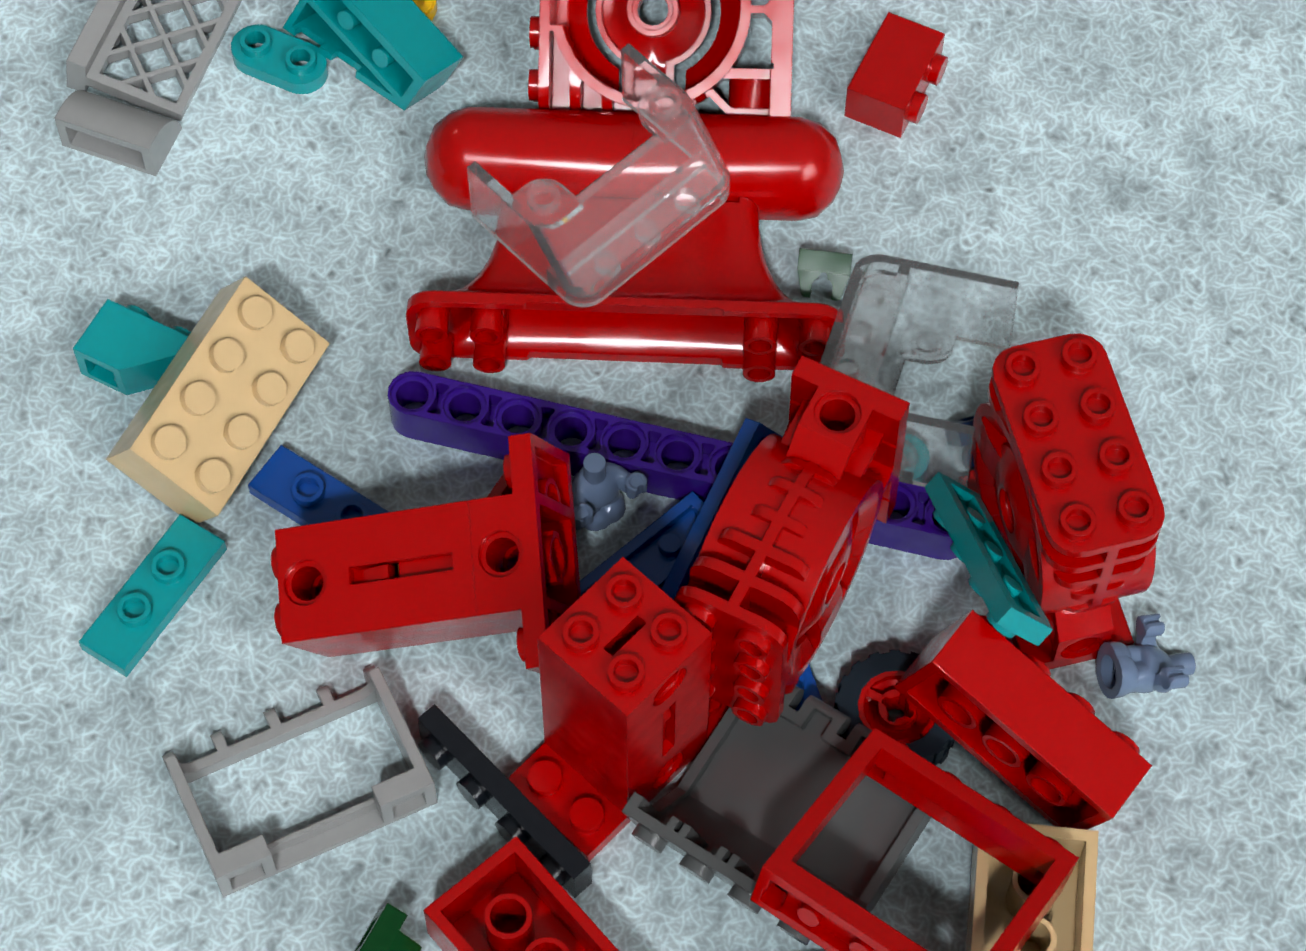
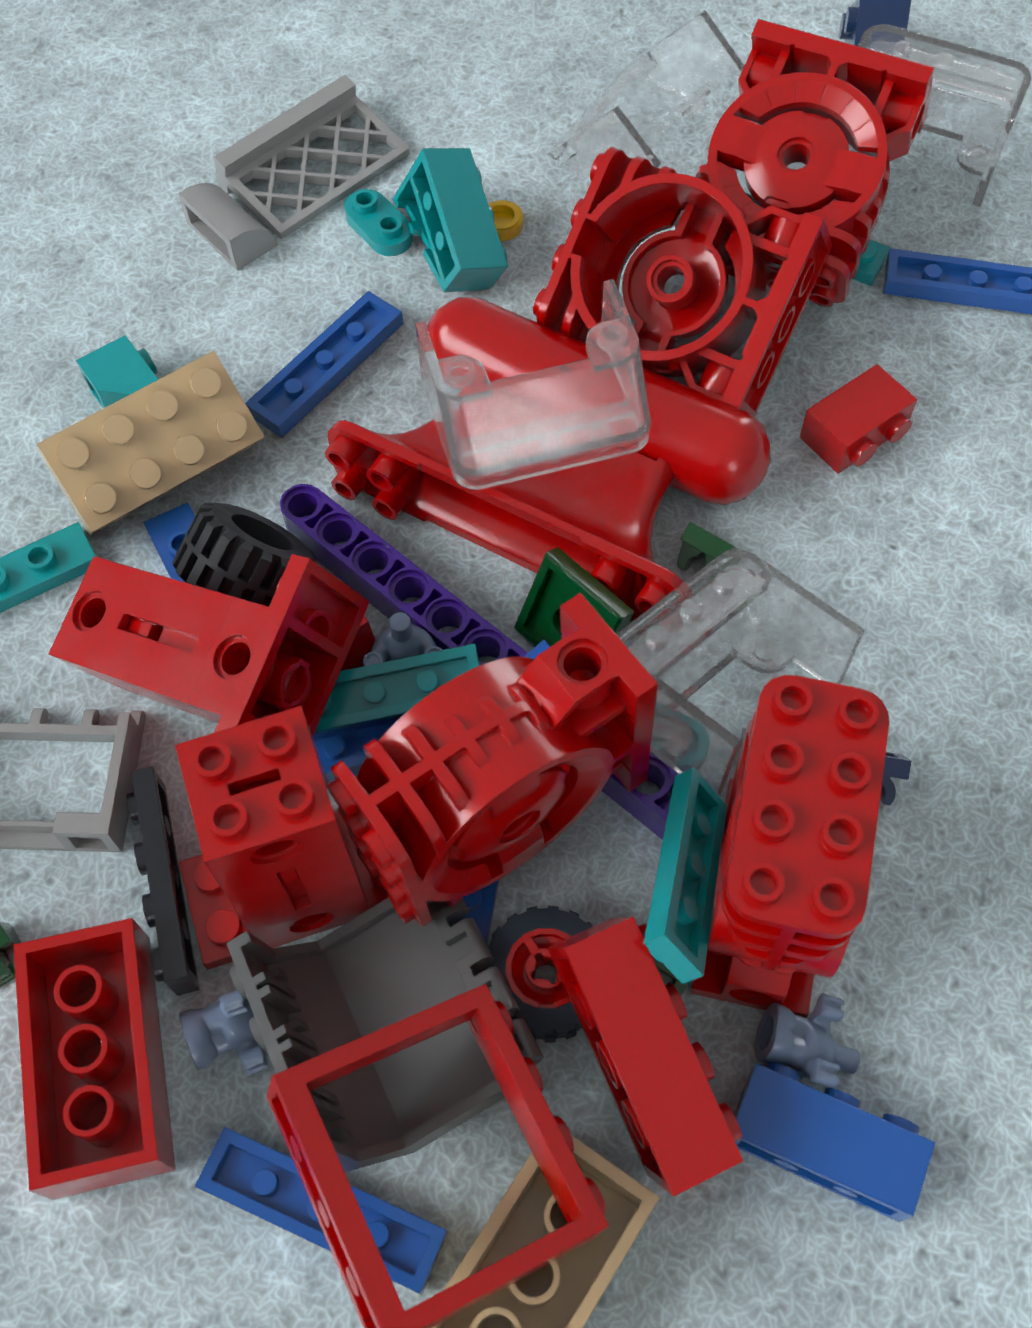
camera: 30 degrees right, 0 degrees up
(329, 235) = (324, 364): none -> blue plate
(400, 468) = (236, 552): none -> black tyre
(636, 517) = (392, 687): none -> teal plate
(644, 894) = (220, 1029): none -> sand blue piece
(737, 381) = (555, 584): none -> dark green tile
(1209, 730) = (833, 1141): none -> blue brick

